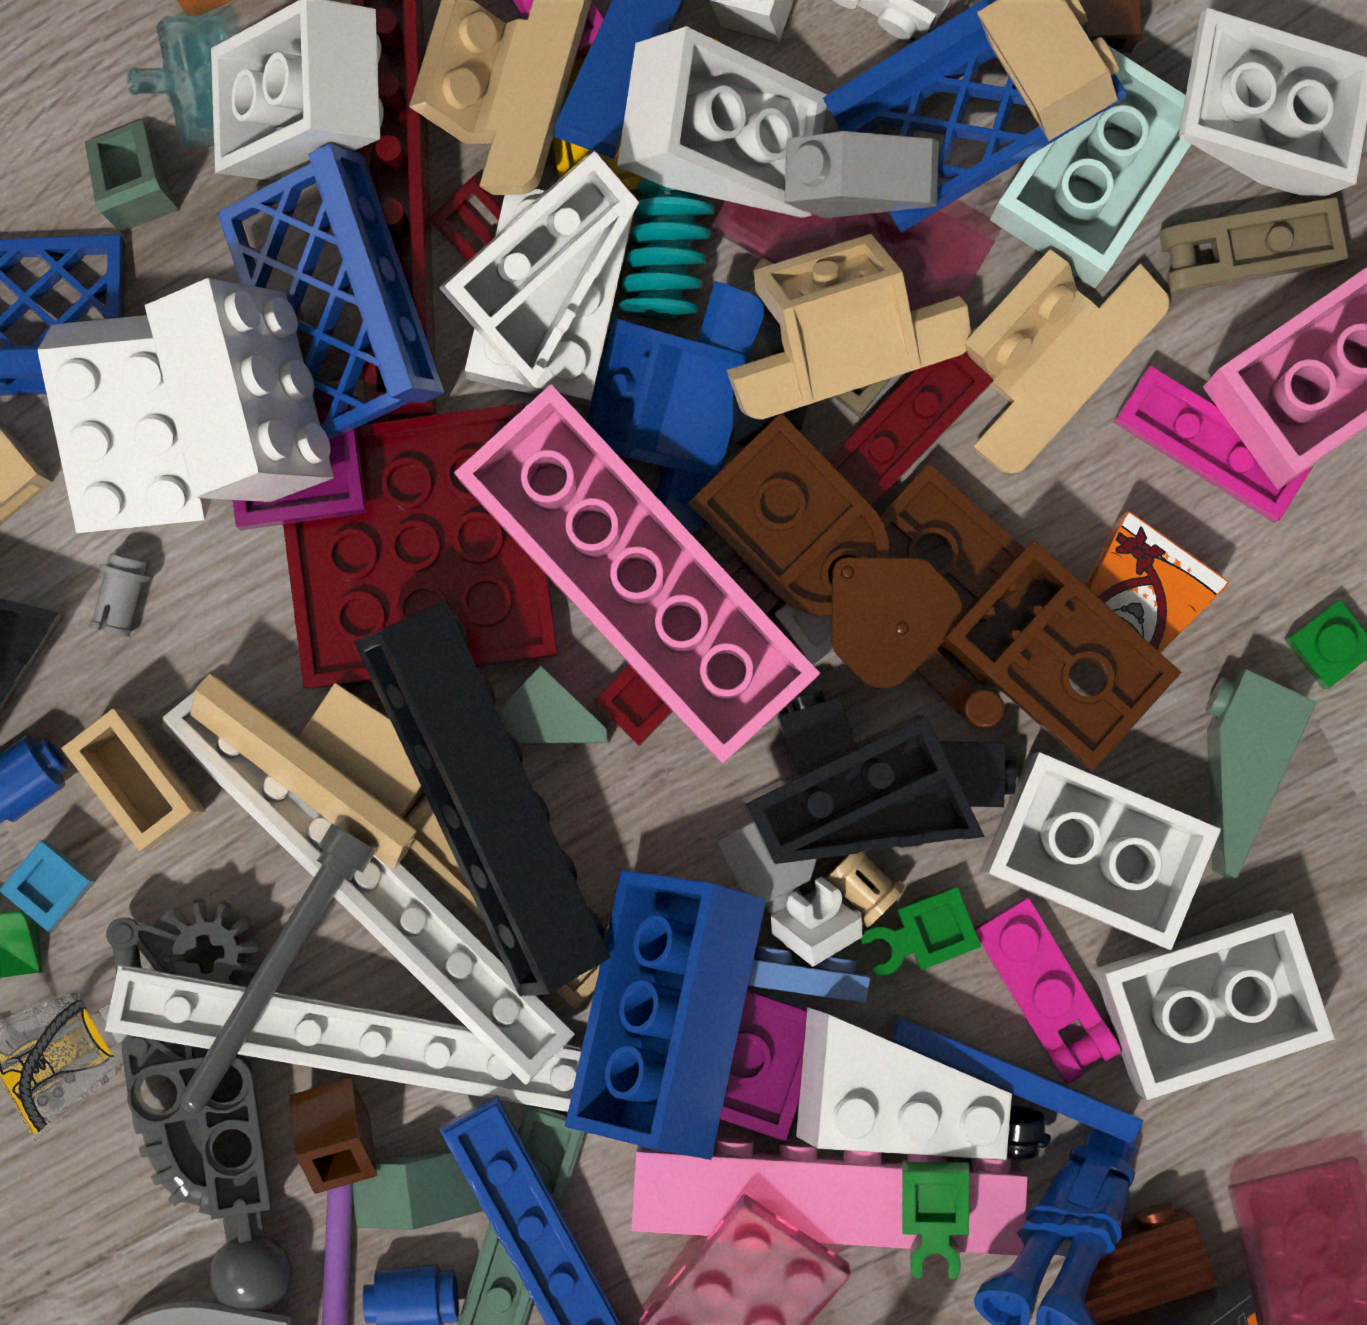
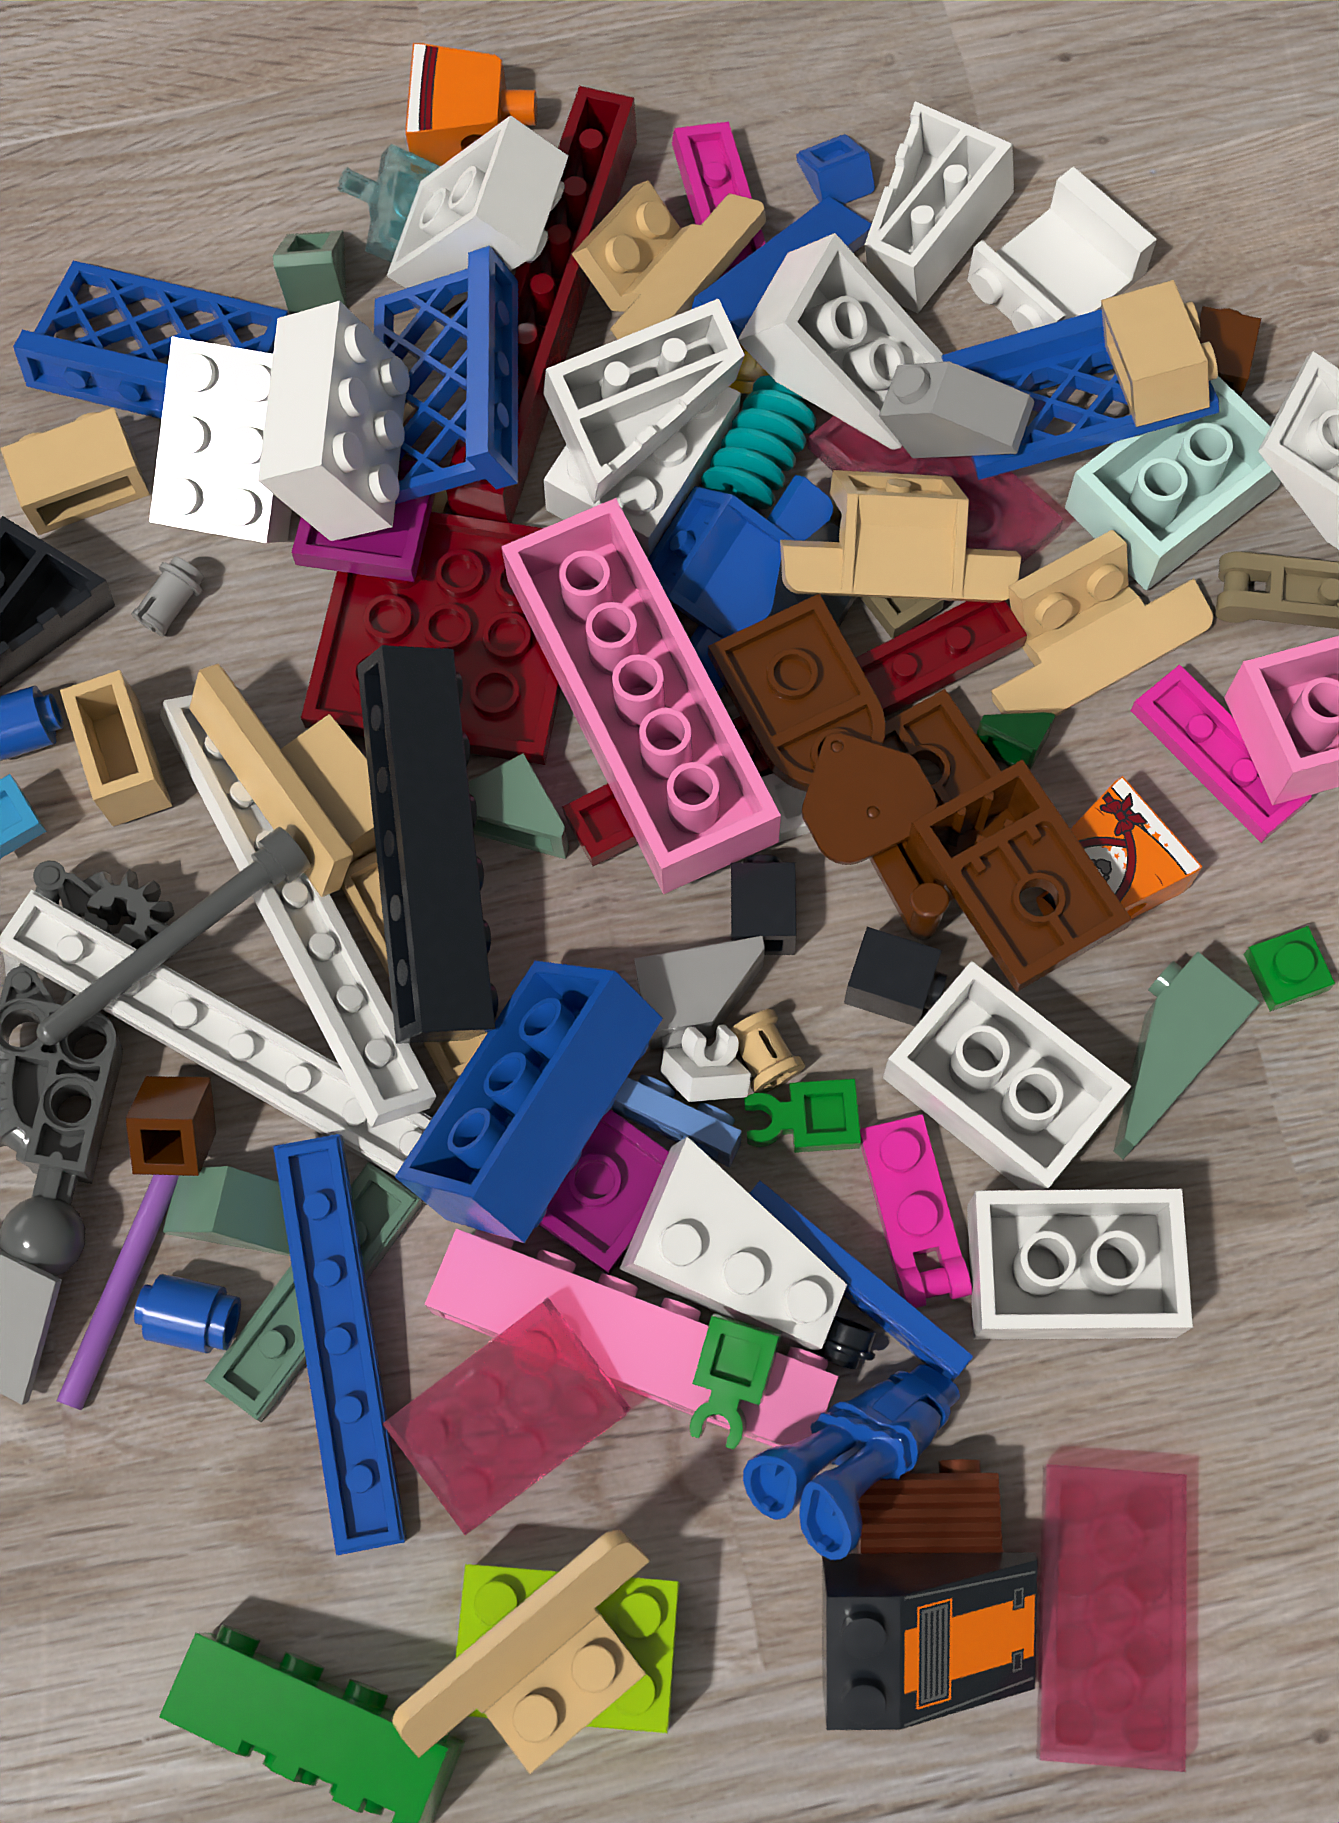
camera: 15 degrees right, 15 degrees down
(866, 798) = (788, 946): black wedge -> none
(1013, 495) = (1015, 736): none -> dark green slope

